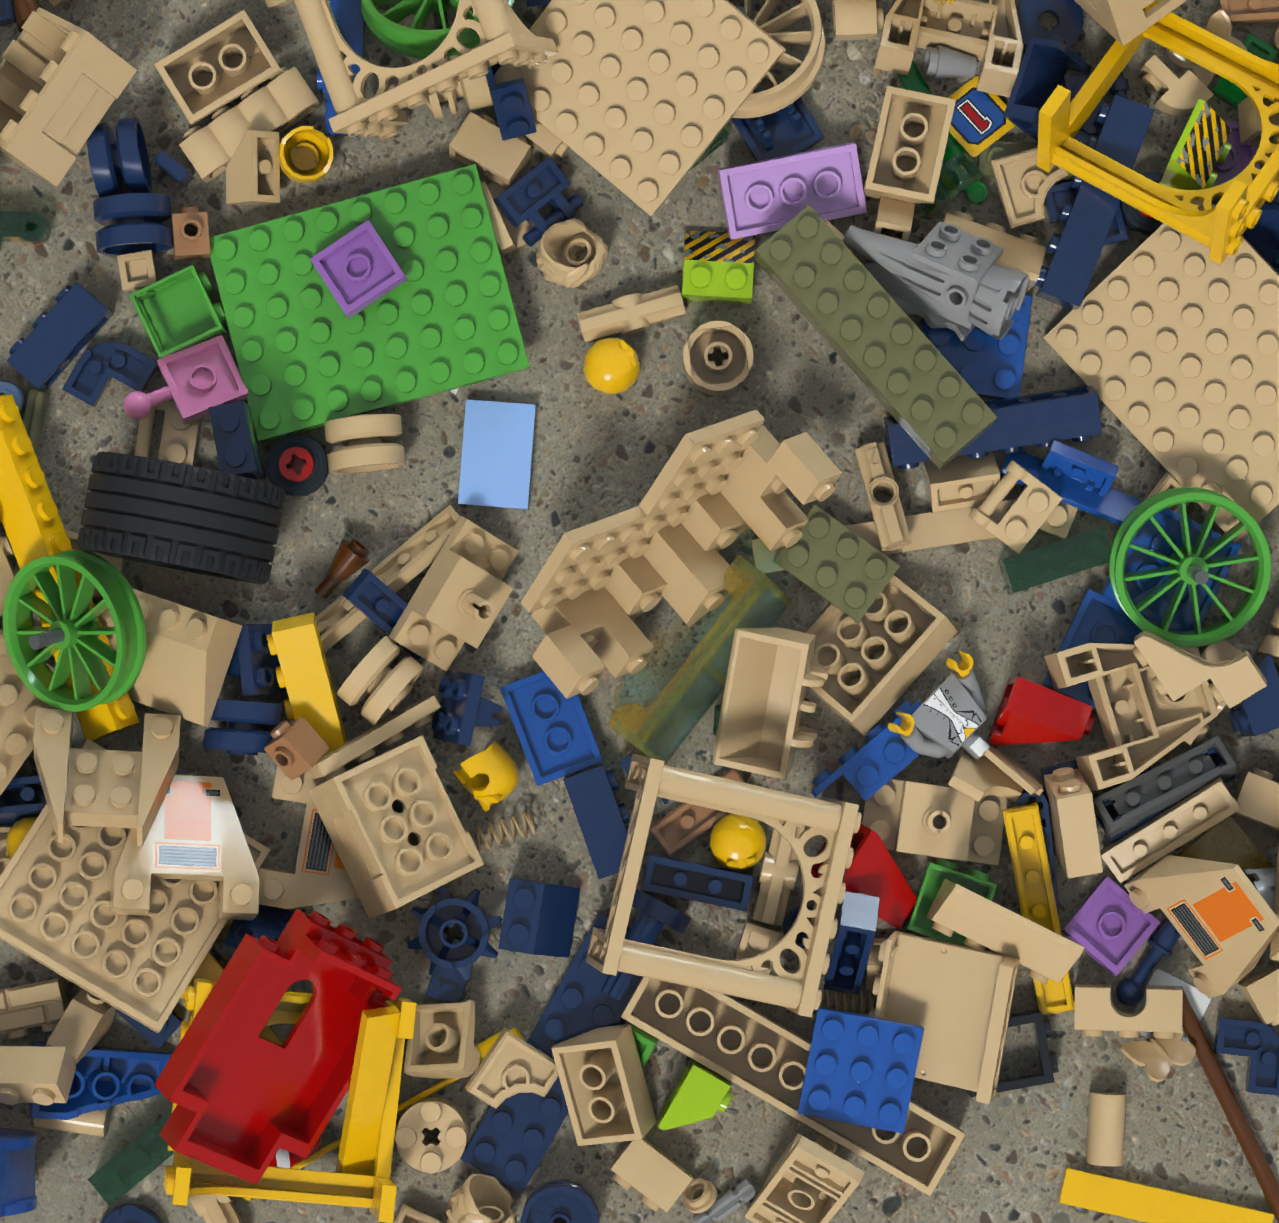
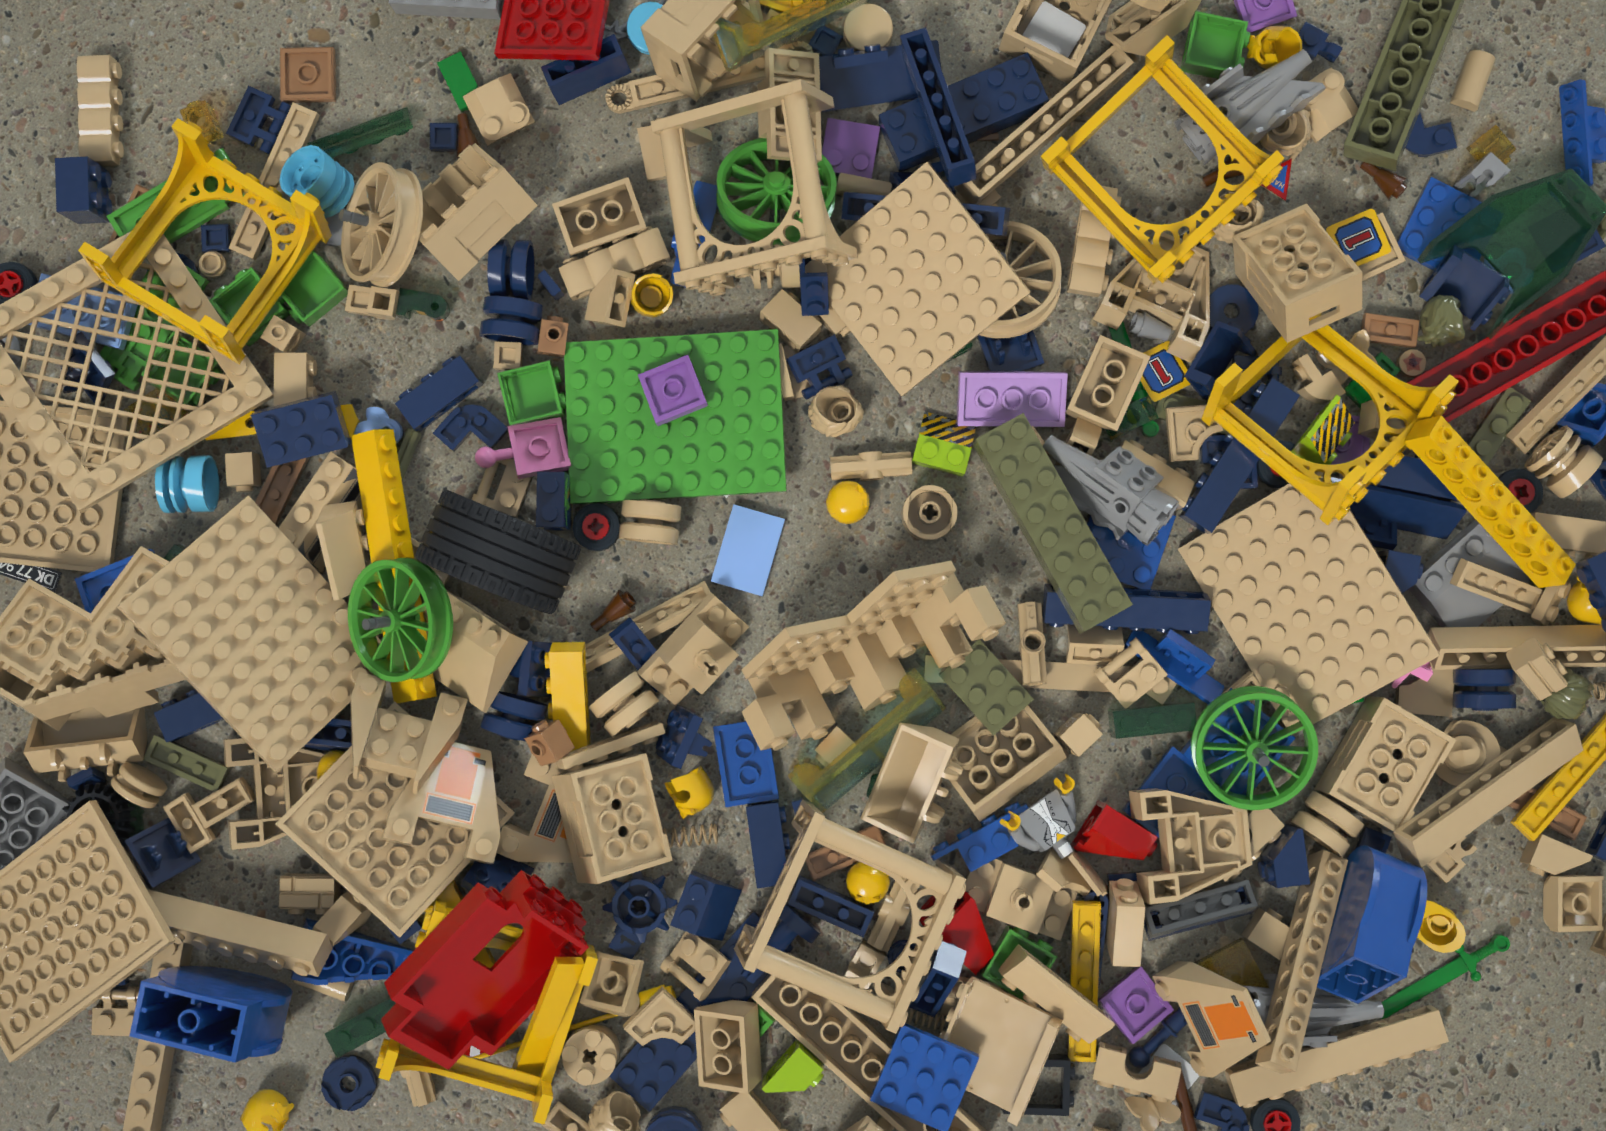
camera: 20 degrees right, 0 degrees up
(546, 982) = (702, 958): none -> tan plate
(656, 678) = (832, 745): none -> tan brick
(965, 596) = (1078, 733): none -> tan brick
(1170, 829) = (1196, 942): tan plate -> none
(1181, 671) = (1232, 829): tan arch -> none

